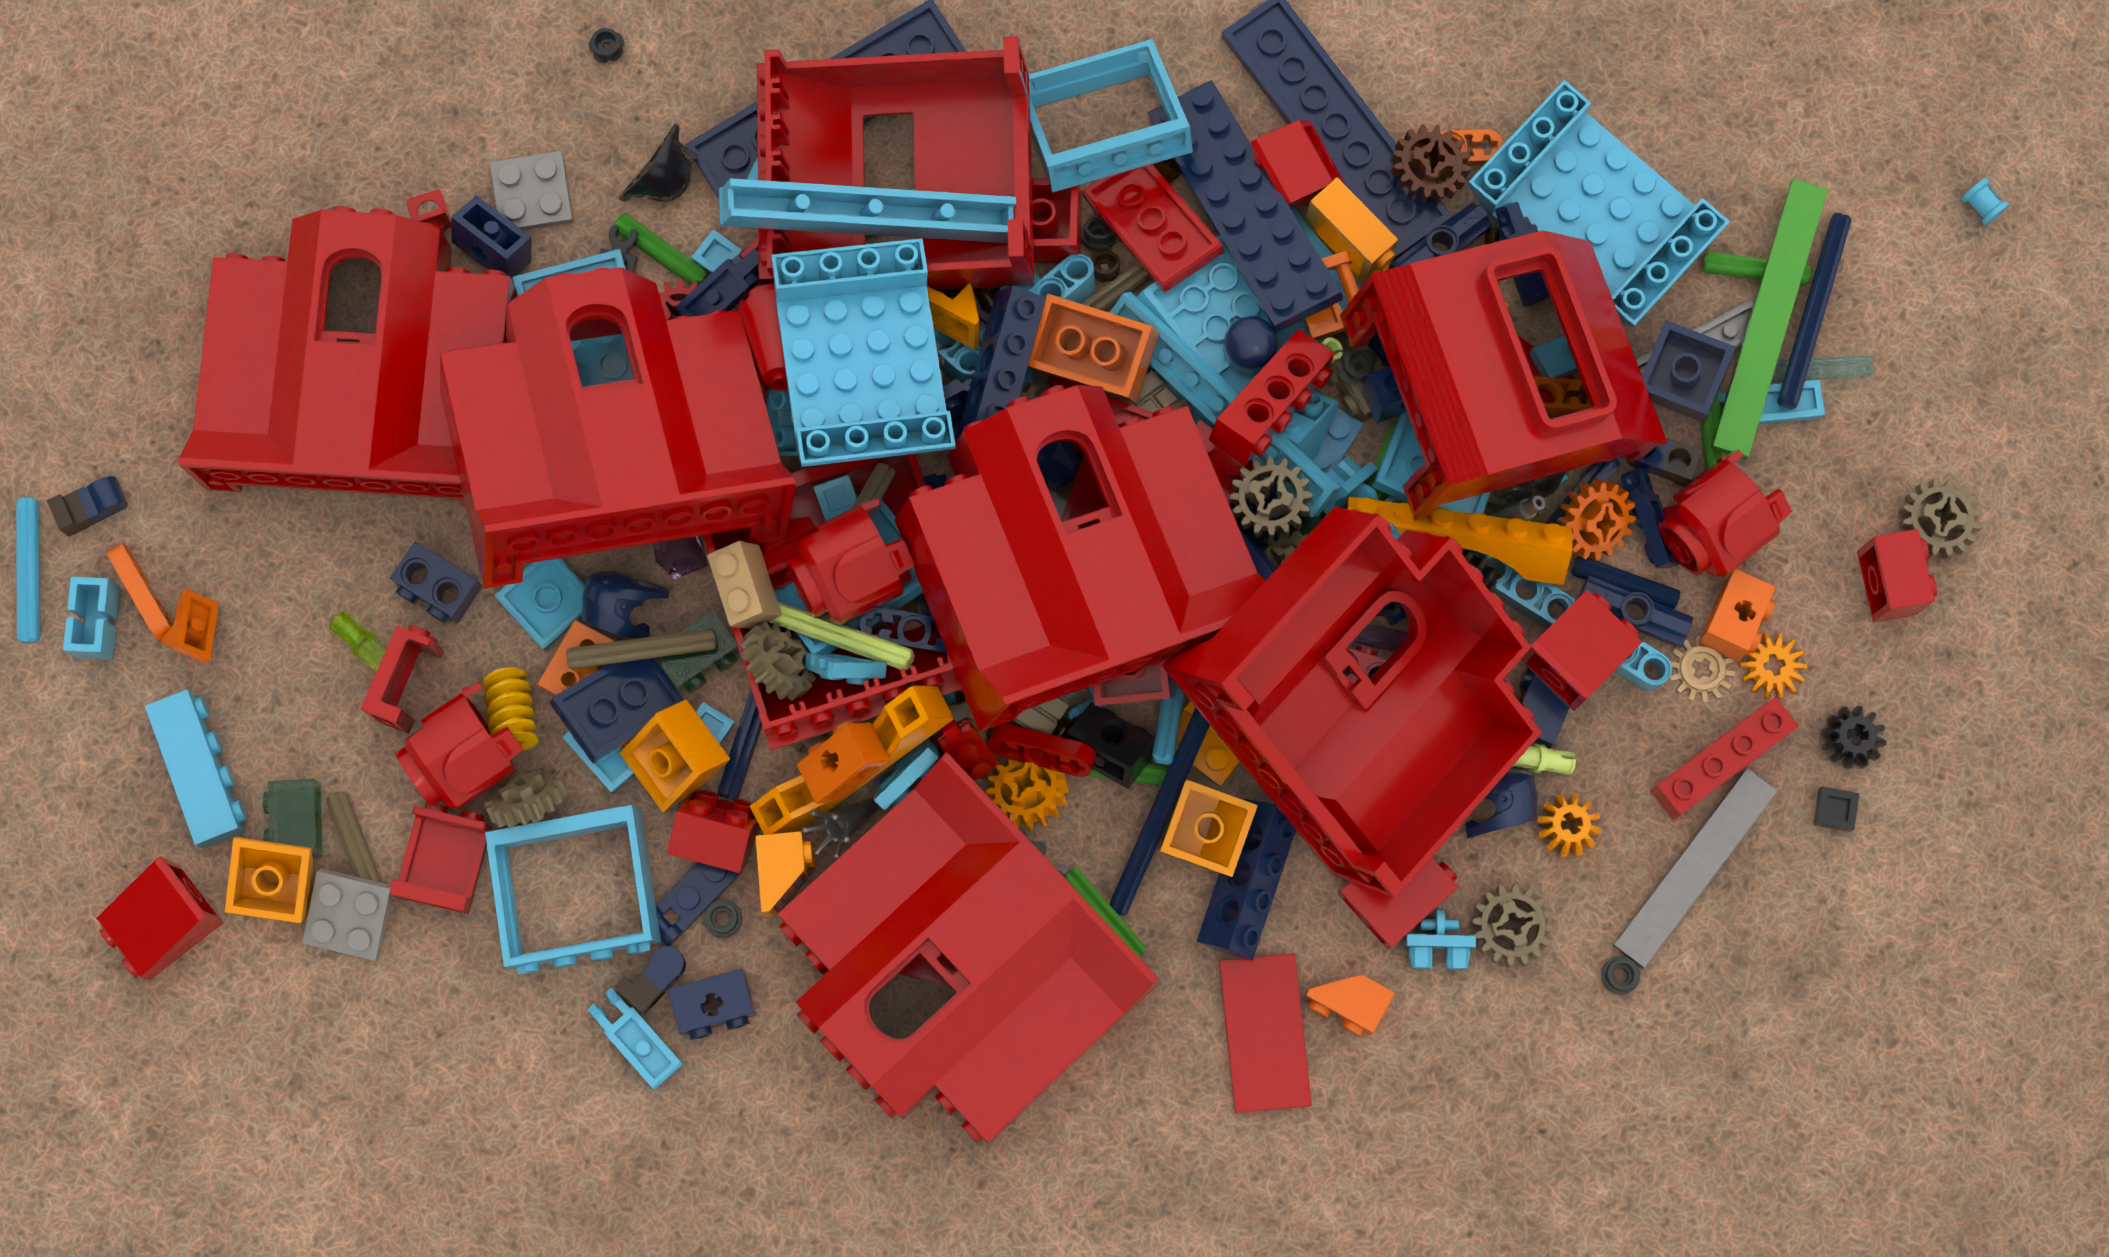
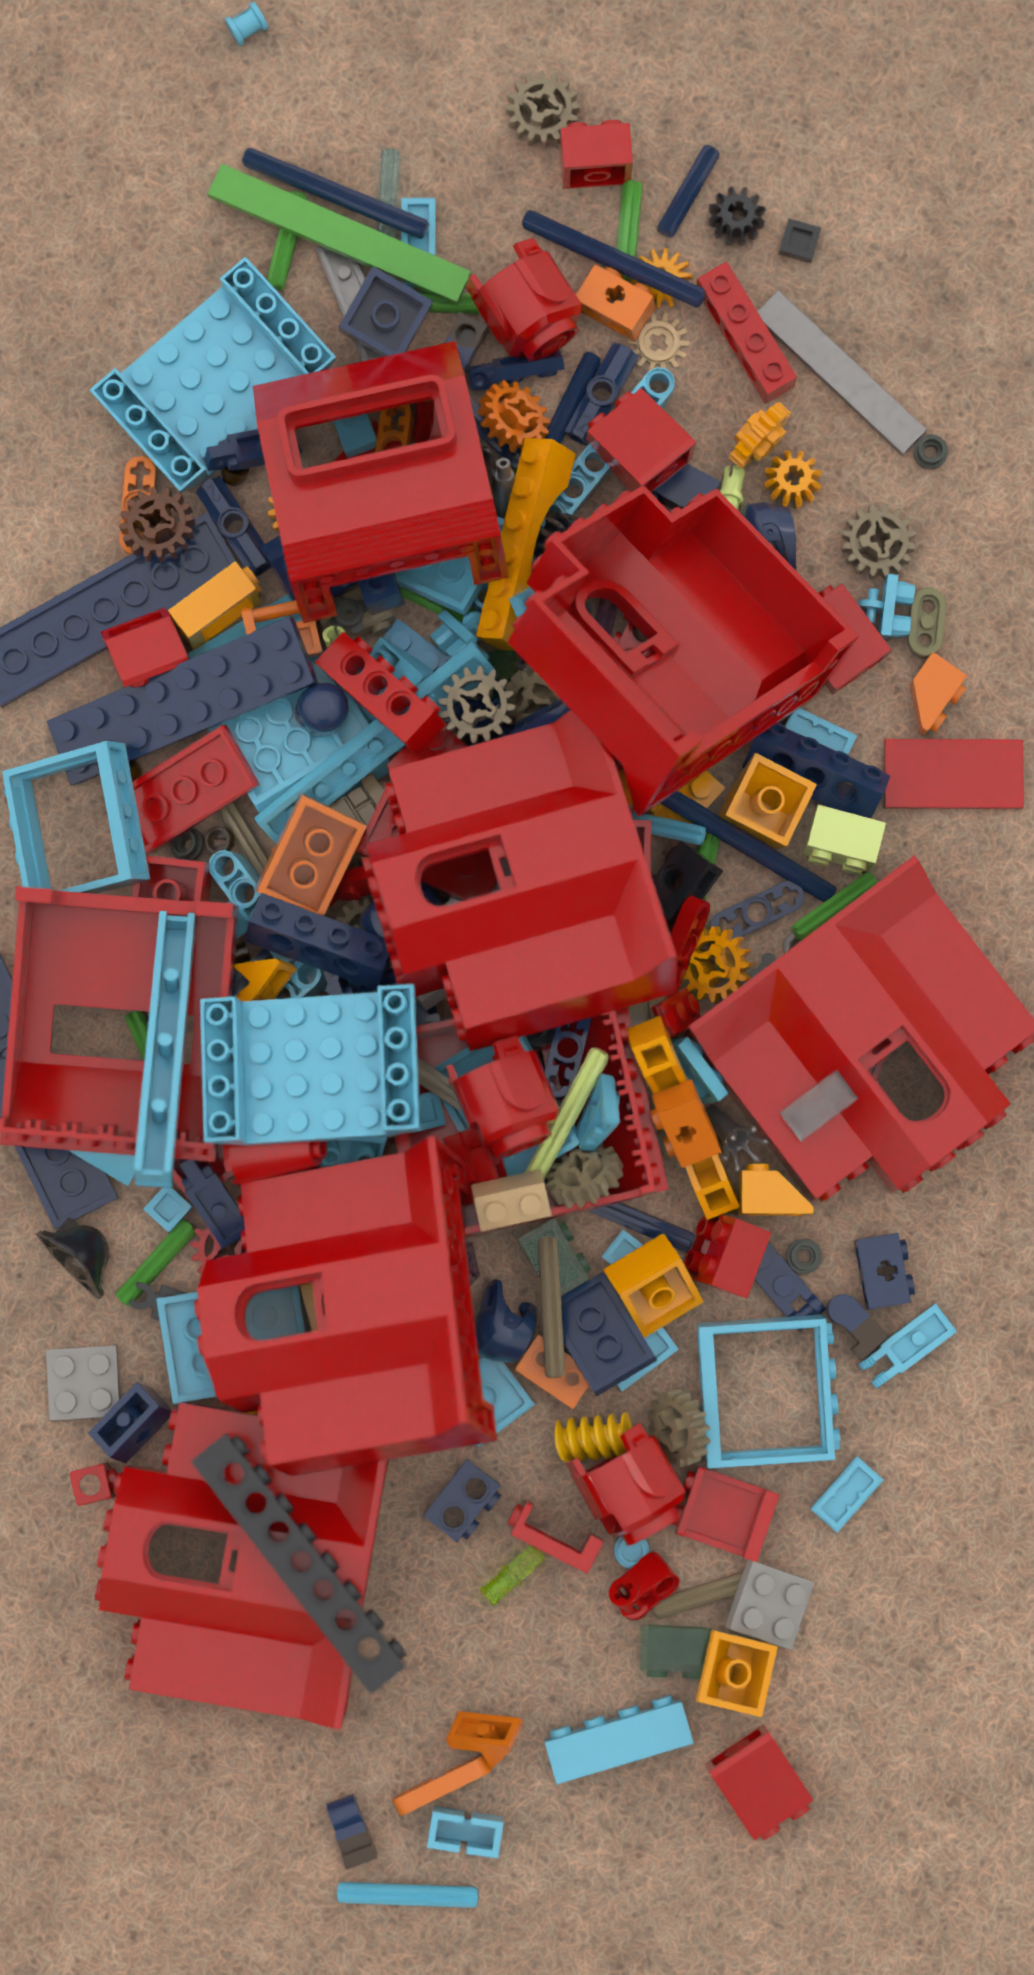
camera: 85 degrees left, 5 degrees up
(323, 405) = (371, 1671): none -> black brick
(358, 783) = (645, 1585): none -> red piece
(390, 768) = (630, 1555): none -> medium azure plate
(471, 987) = (846, 1494): none -> medium azure plate
(876, 903) = (818, 1105): none -> clear light blue tile
(1112, 852) = (776, 892): none -> dark blue beam
(1176, 913) = (843, 840): none -> yellowish green brick
(1293, 882) = (821, 730): none -> medium azure plate
(1428, 987) = (927, 624): none -> olive plate
(1611, 781) = (760, 435): none -> light orange gear
(1785, 608) = (613, 258): none -> dark blue axle
(1821, 624) = (629, 219): none -> bright green axle
(1874, 684) = (688, 191): none -> dark blue axle

